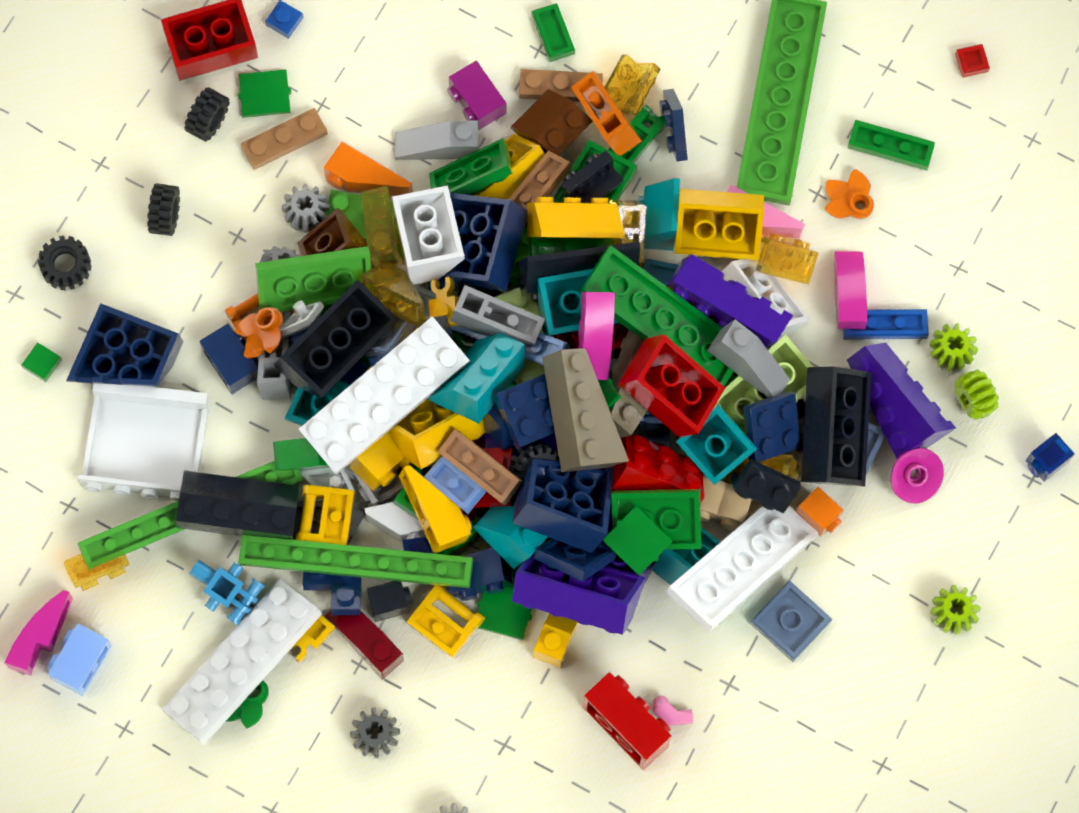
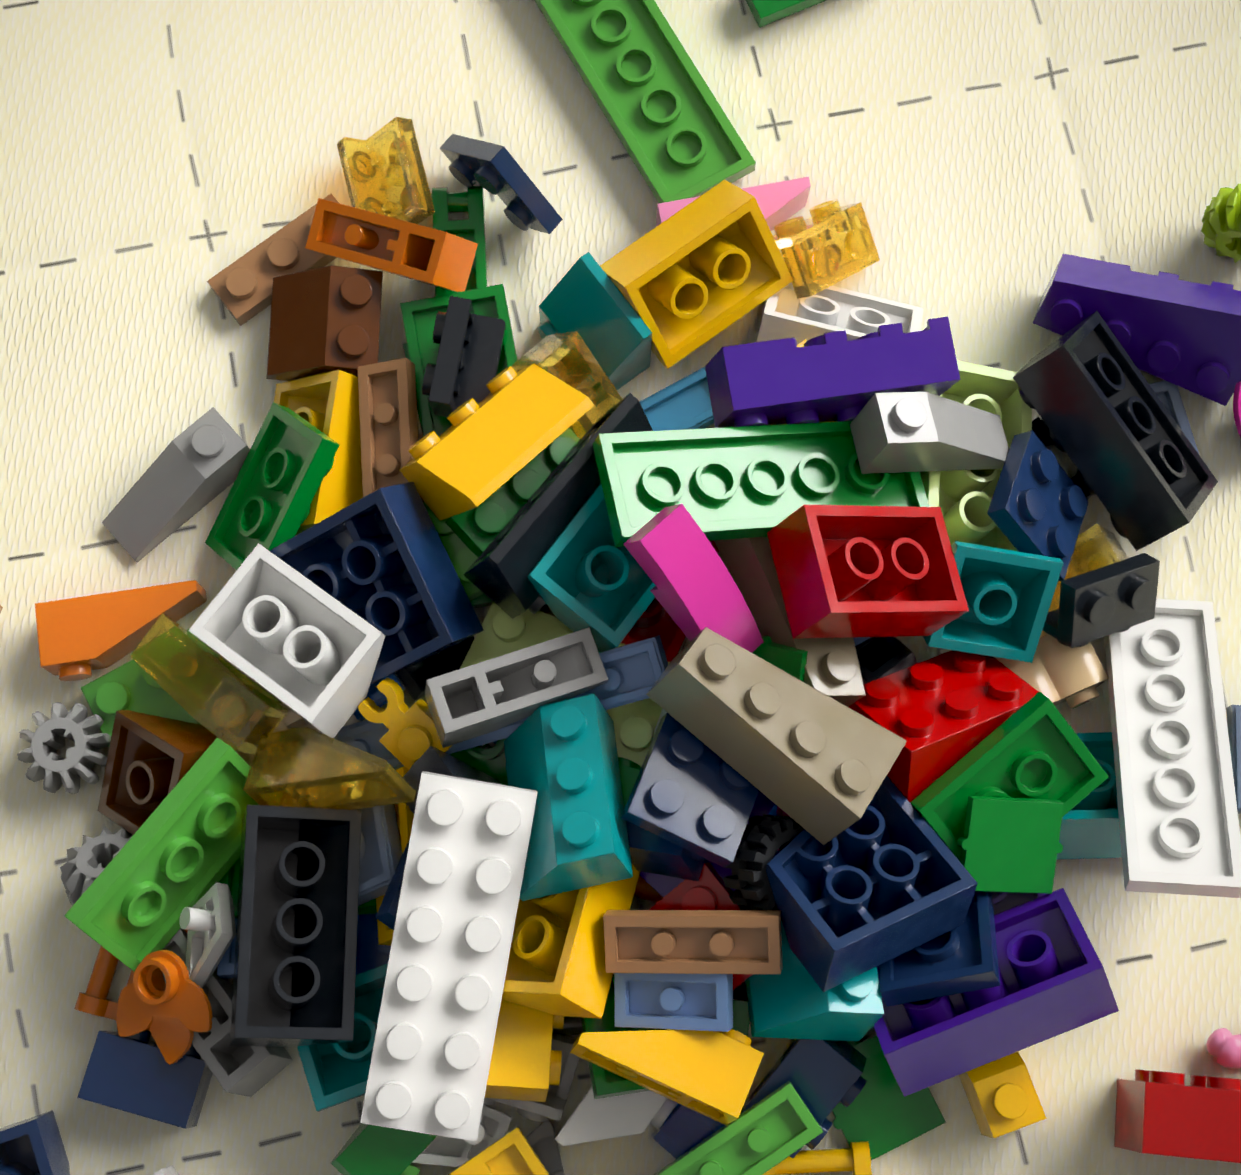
camera: 40 degrees left, 5 degrees up
(476, 95) = (176, 370): magenta brick -> none
(553, 32) = (207, 191): green tile -> none
(820, 512) = (1195, 569): orange brick -> none
(847, 194) = (818, 92): orange plate -> none
(850, 290) = (946, 220): dark pink slope -> none
(892, 325) = (1028, 230): blue tile -> none
(948, 338) = (1145, 201): lime gear -> none

